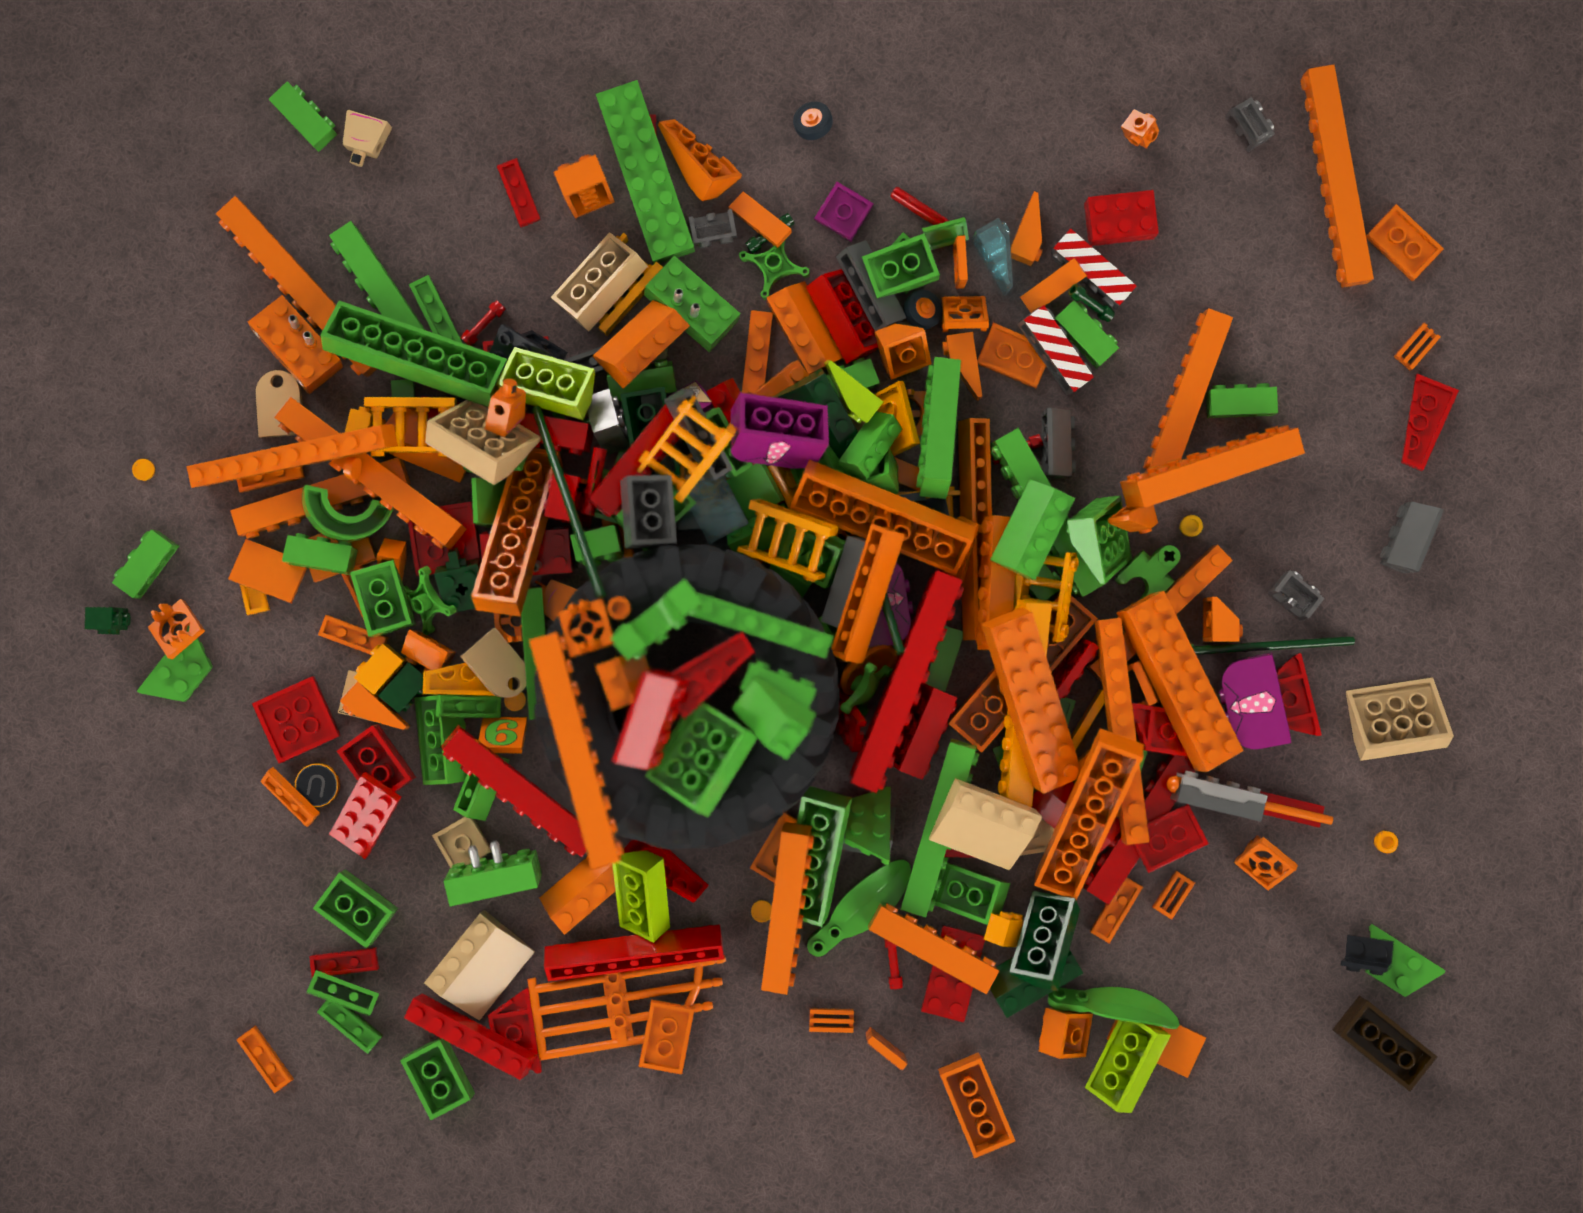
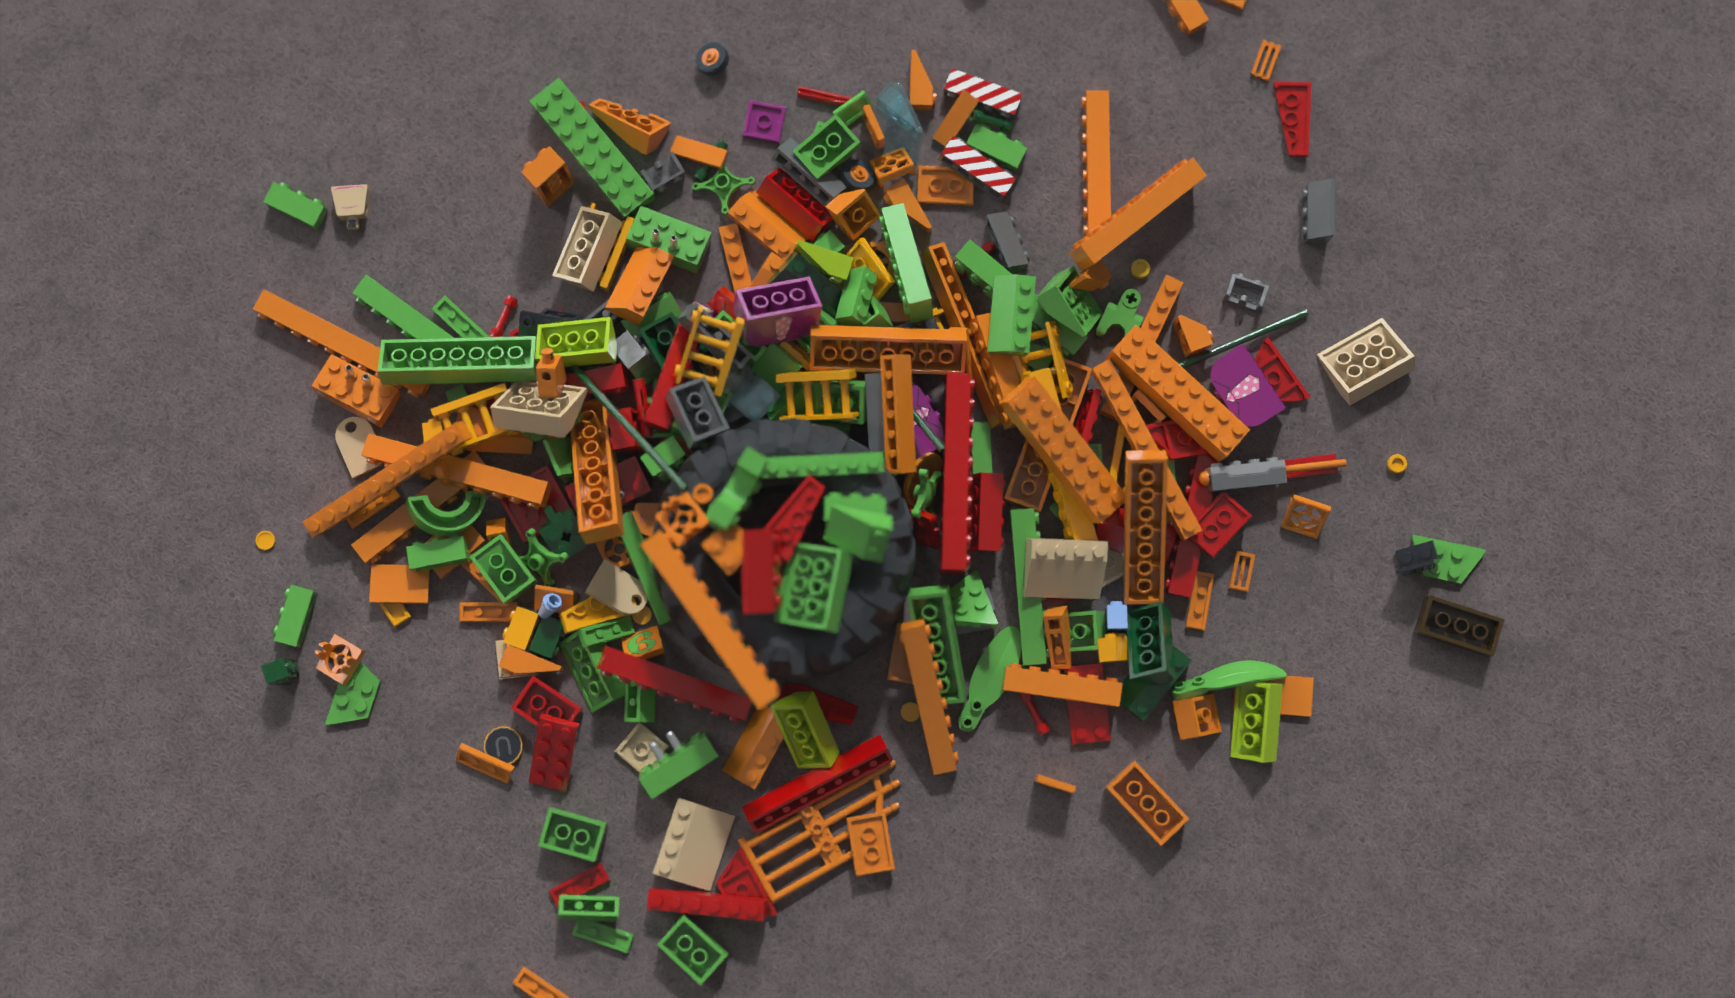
camera: 25 degrees left, 5 degrees down
(296, 719) = (467, 697): red plate -> none
(417, 657) = (550, 604): none -> light blue cone
(518, 192) = (494, 203): red tile -> none
(850, 1020) = (986, 785): orange tile -> none
(949, 893) = (1058, 636): none -> orange slope
(1020, 895) = (1116, 616): none -> light blue brick
(1121, 218) = (989, 45): red brick -> none
(1241, 401) = (1142, 154): bright green brick -> none

